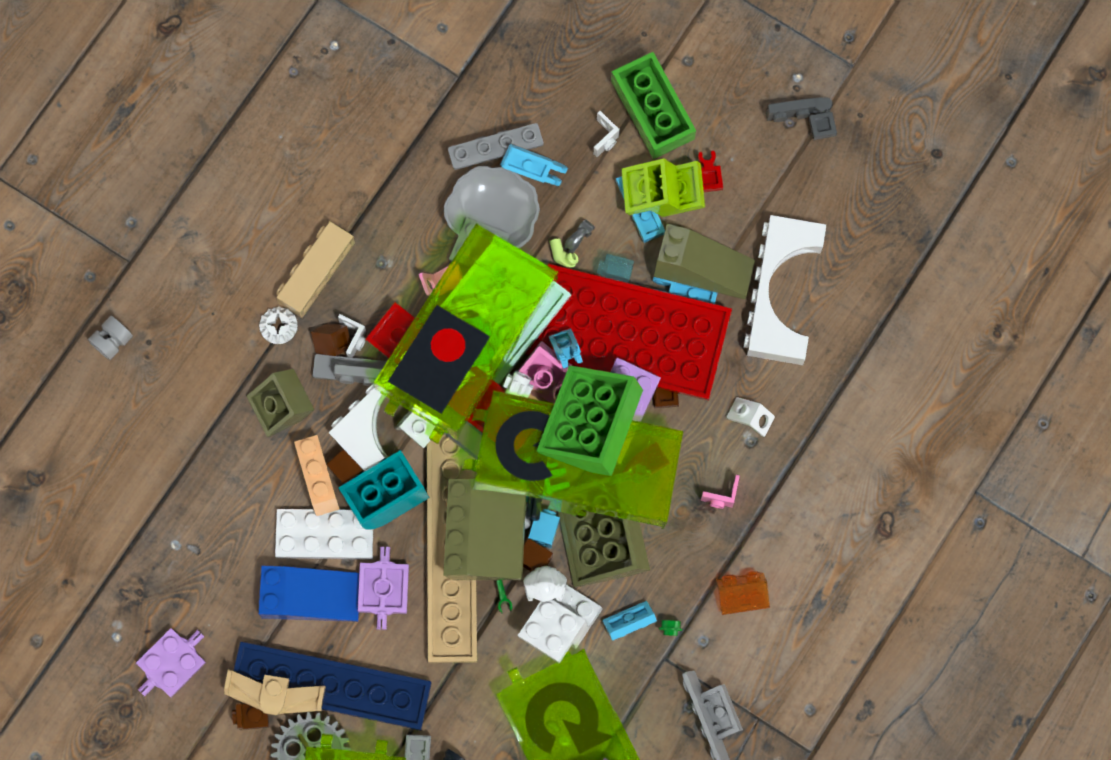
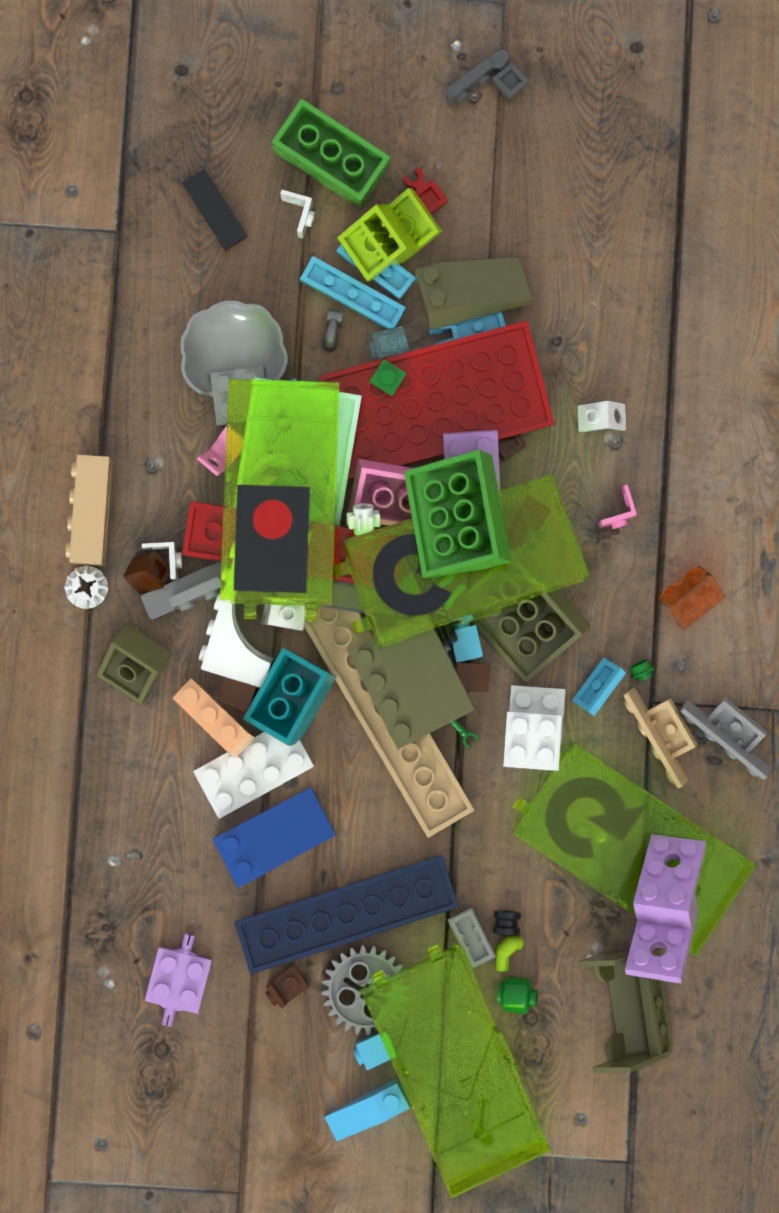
camera: 30 degrees left, 10 degrees up
(273, 695) = (297, 955): tan plate -> none
(383, 588) = (342, 790): lavender plate -> none
(494, 146) = (198, 285): light grey bracket -> none
(532, 165) = (246, 283): medium azure hinge -> none
(541, 98) = (214, 210): none -> black tile
(545, 584) = (501, 701): white hair -> none
(561, 257) = (326, 360): yellowish green arm -> none
(565, 347) = (387, 453): medium azure hinge -> none
(599, 293) = (388, 378): none -> green plate
(610, 217) = (352, 293): none -> medium azure plate
(662, 685) = (665, 731): none -> tan bracket
(768, 335) = (573, 325): white arch -> none

